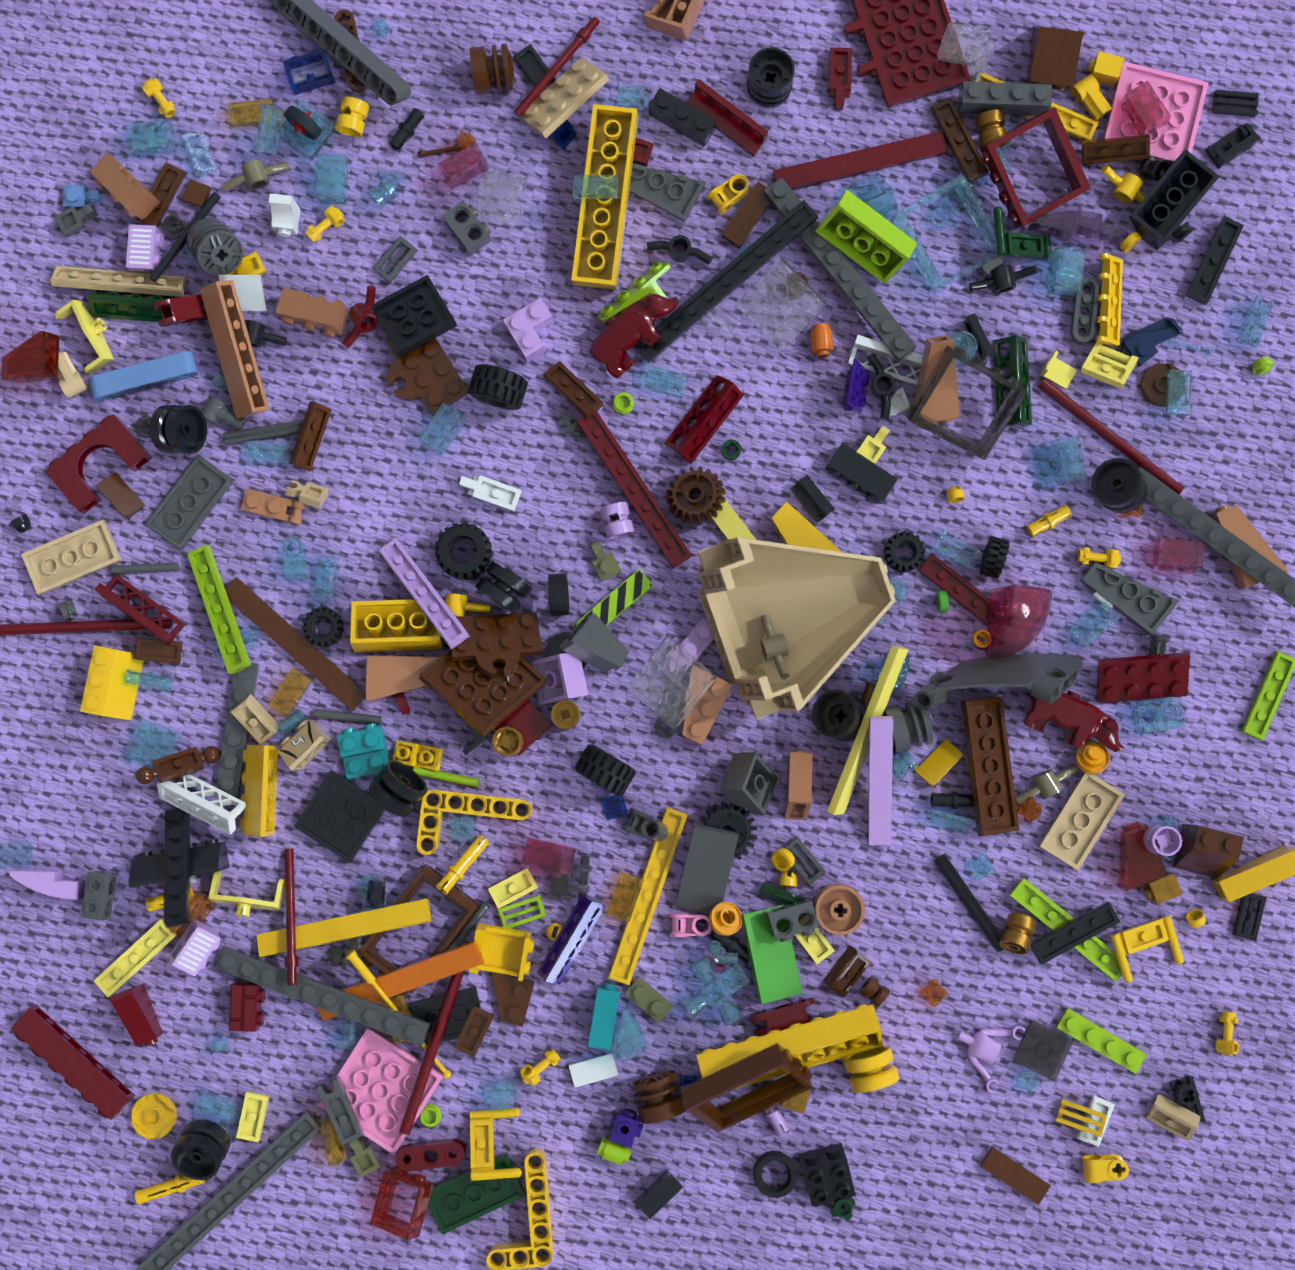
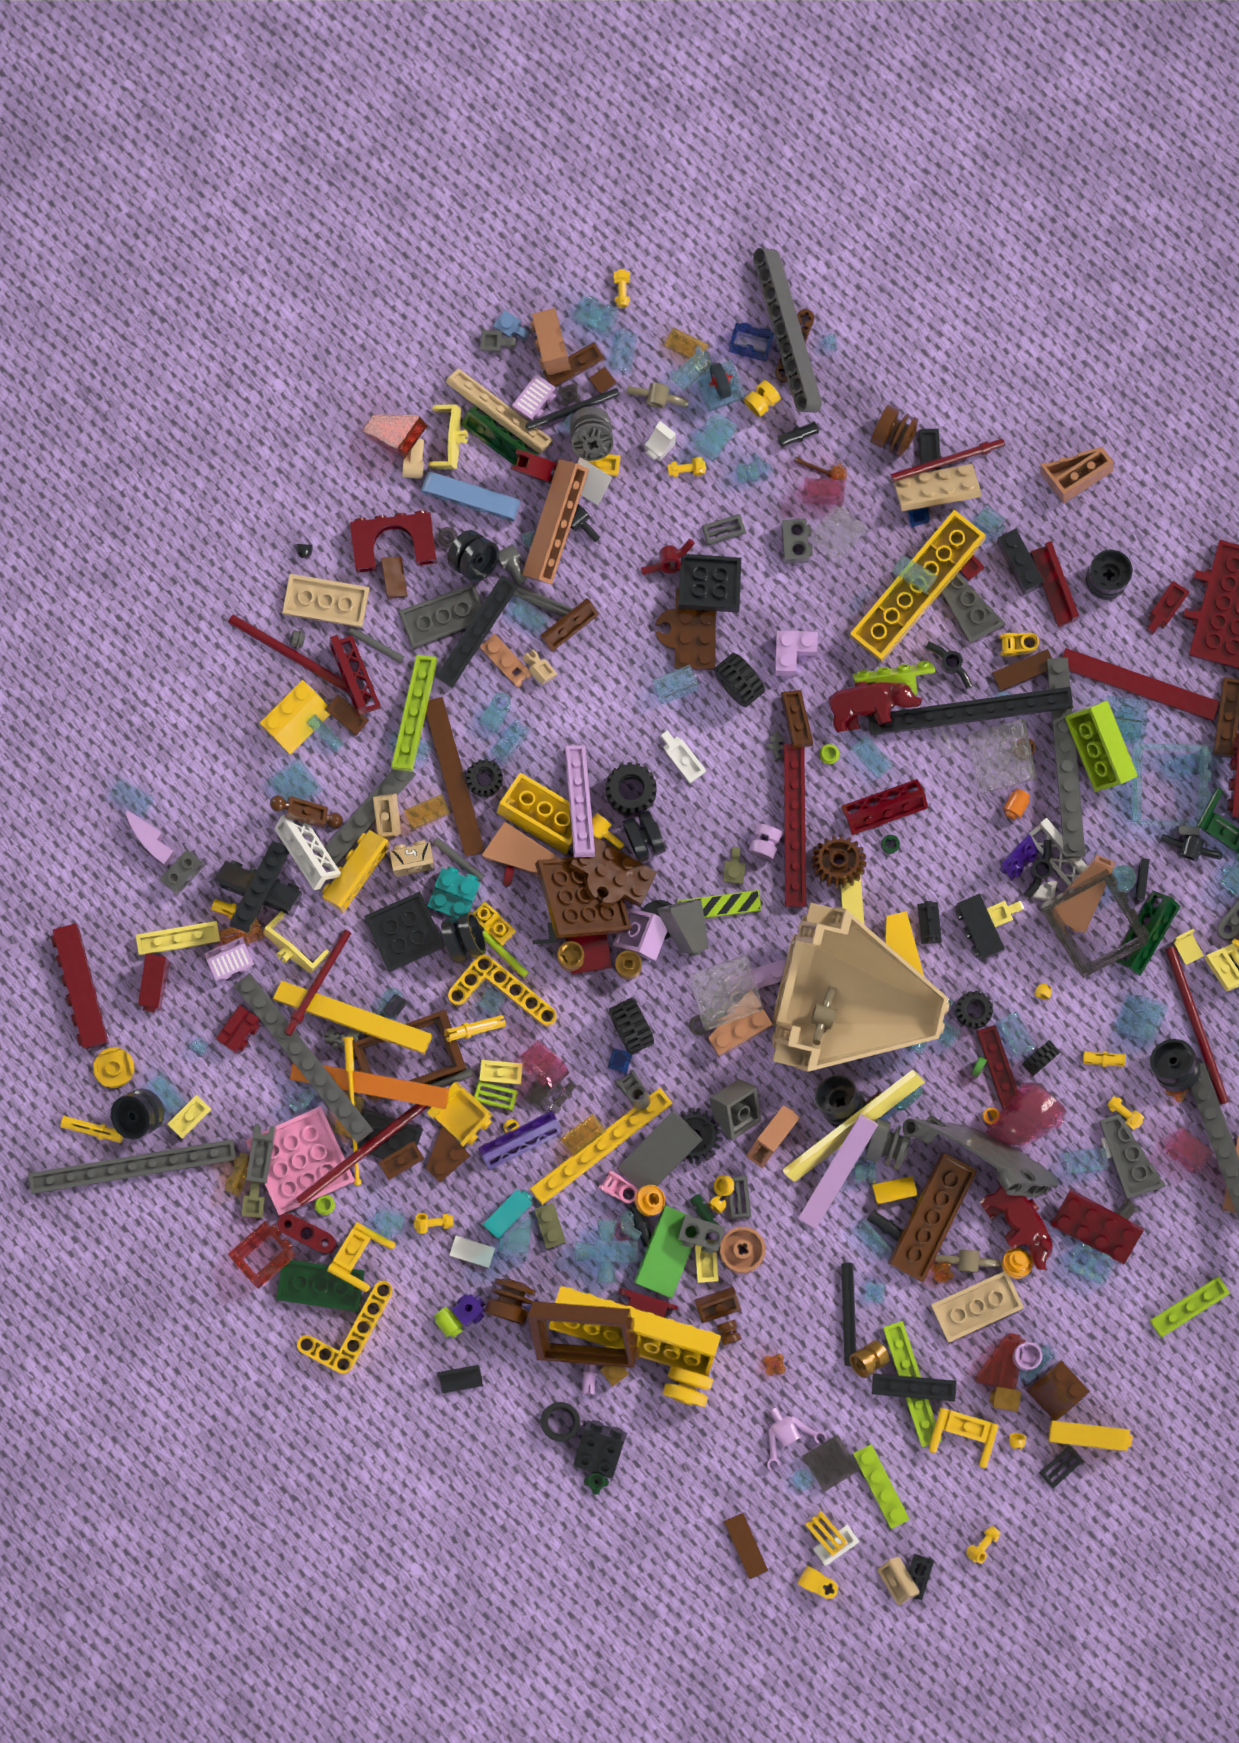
camera: 30 degrees right, 5 degrees down
(228, 496) = (477, 631): none -> black plate
(292, 722) = (413, 835): clear light blue pin -> none
(312, 312) = (633, 530): nougat wedge -> none
(558, 594) = (682, 869): black tyre -> none

